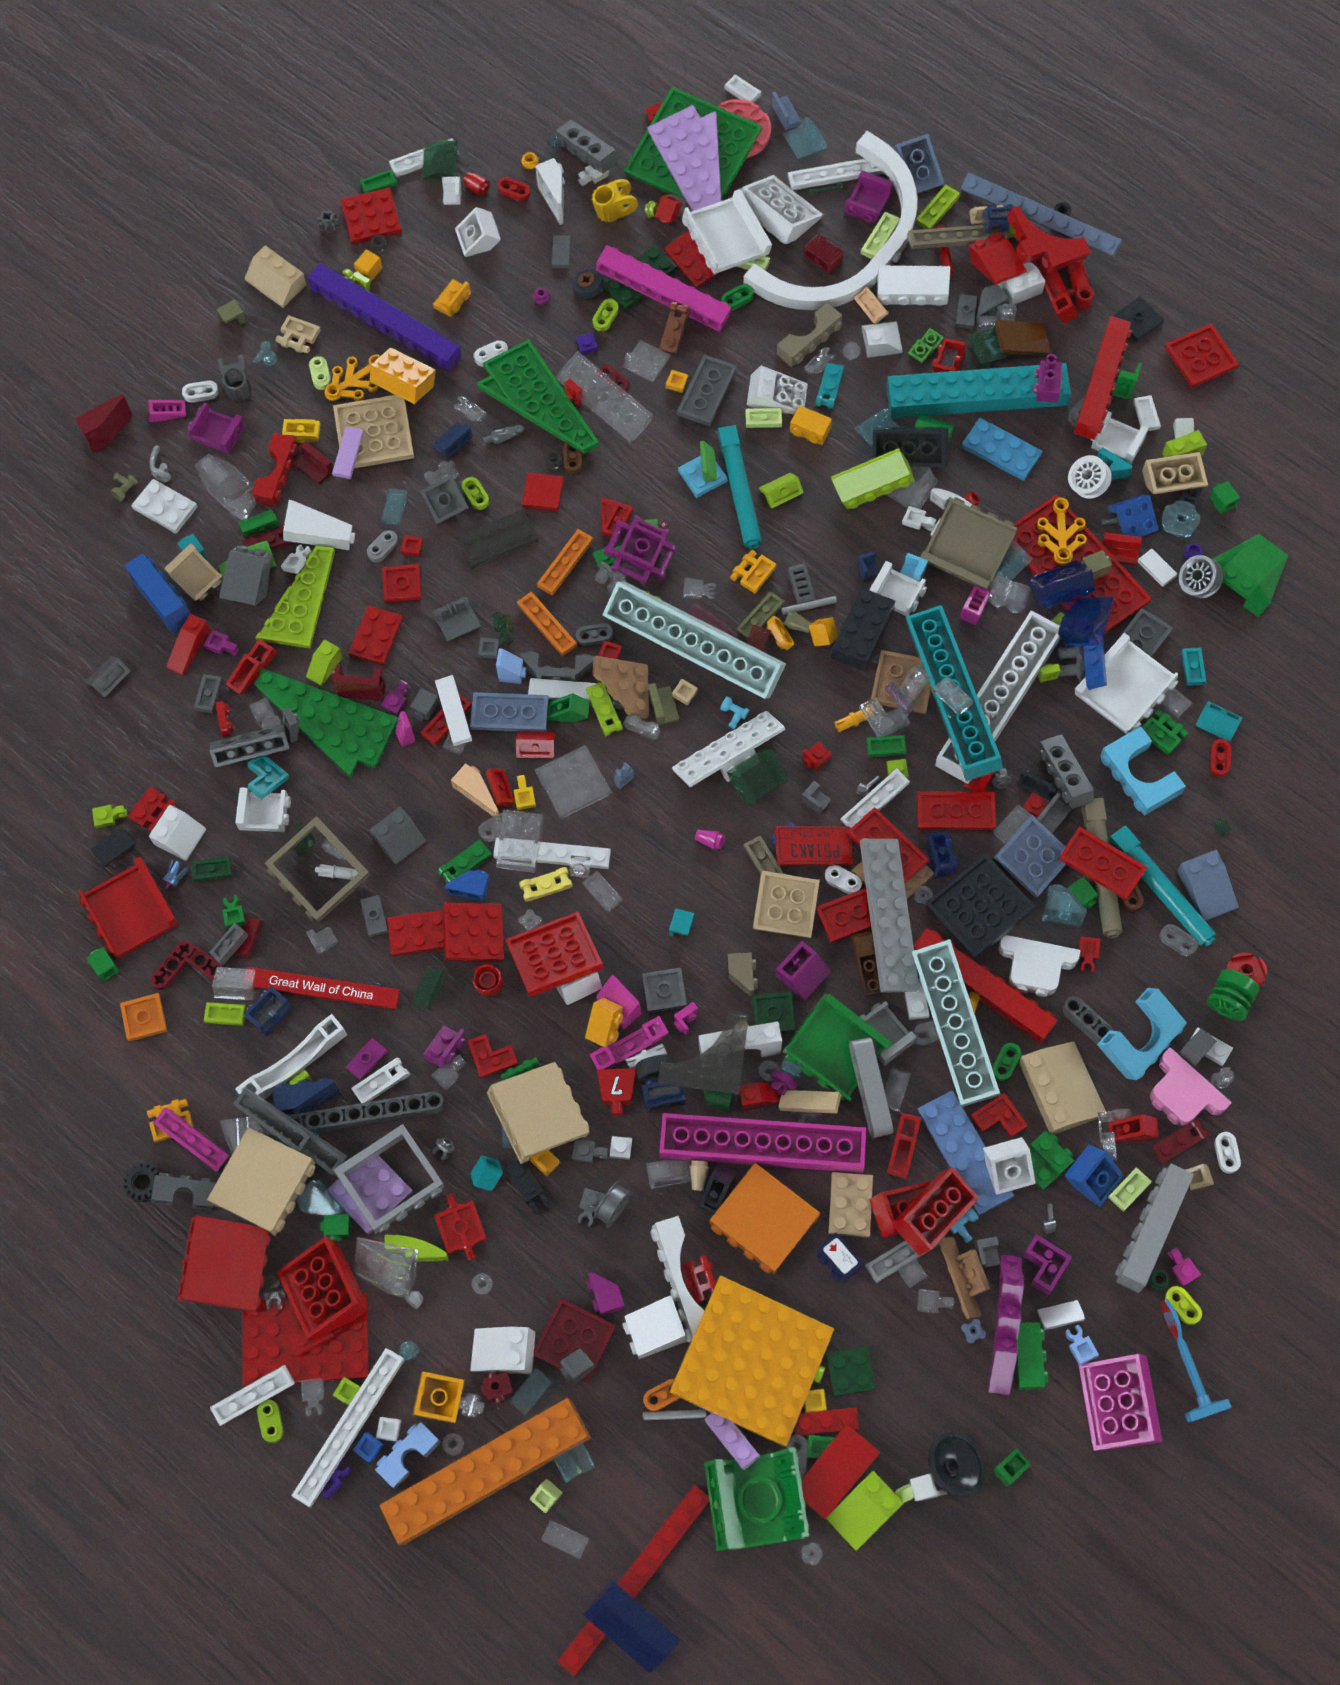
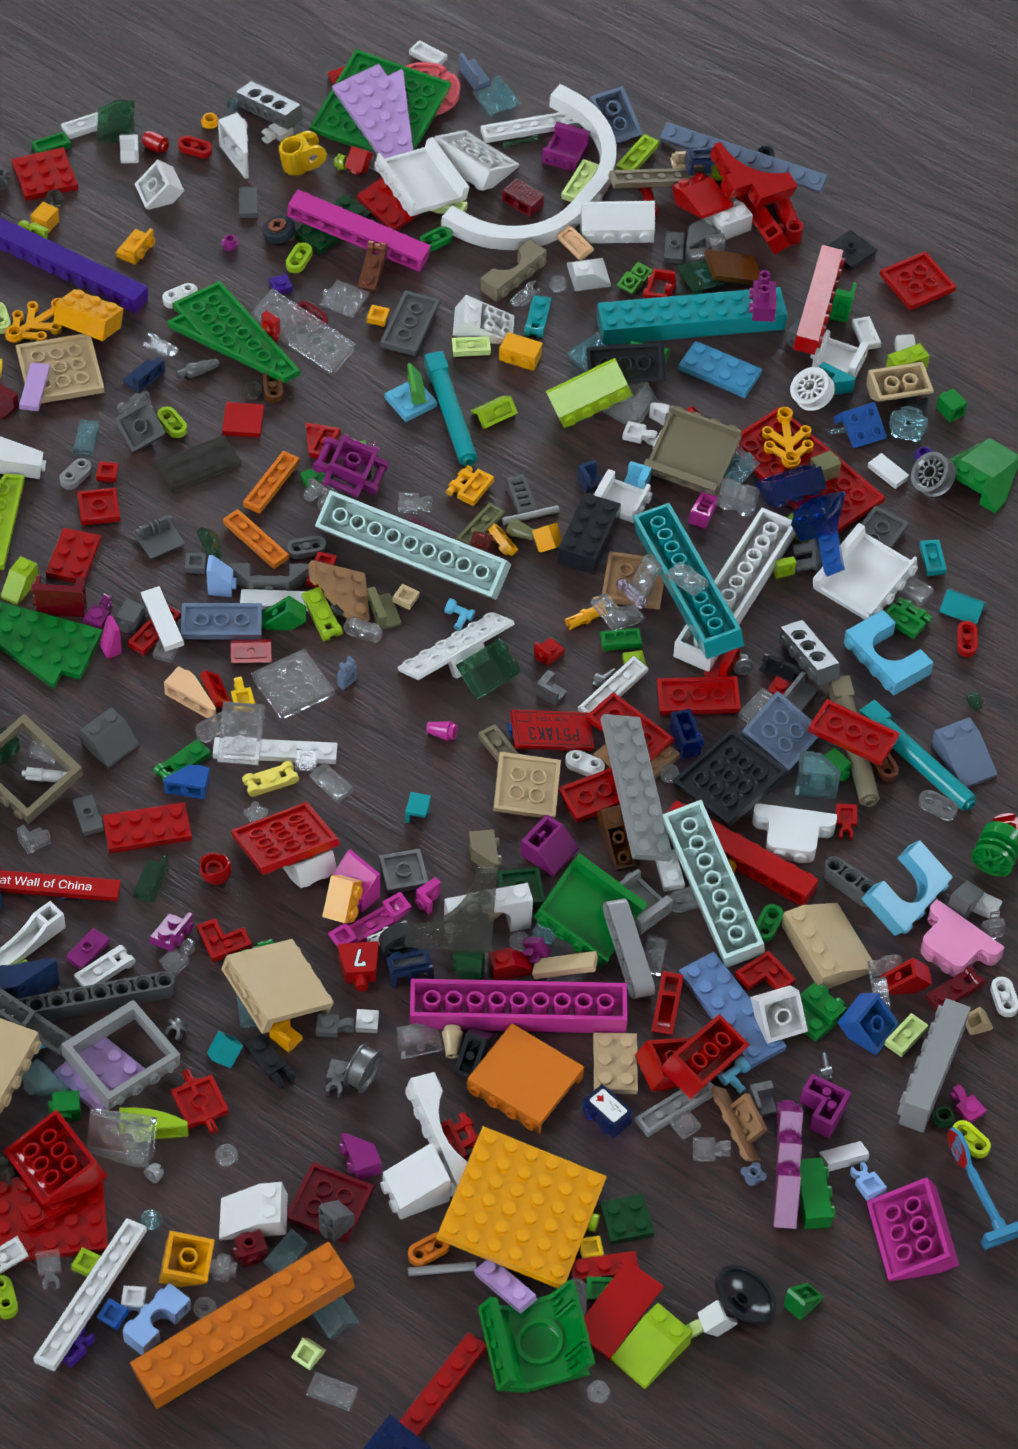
camera: 10 degrees left, 15 degrees down
(473, 932) = (196, 823): red plate -> none
(1122, 547) = (852, 452): red panel -> none

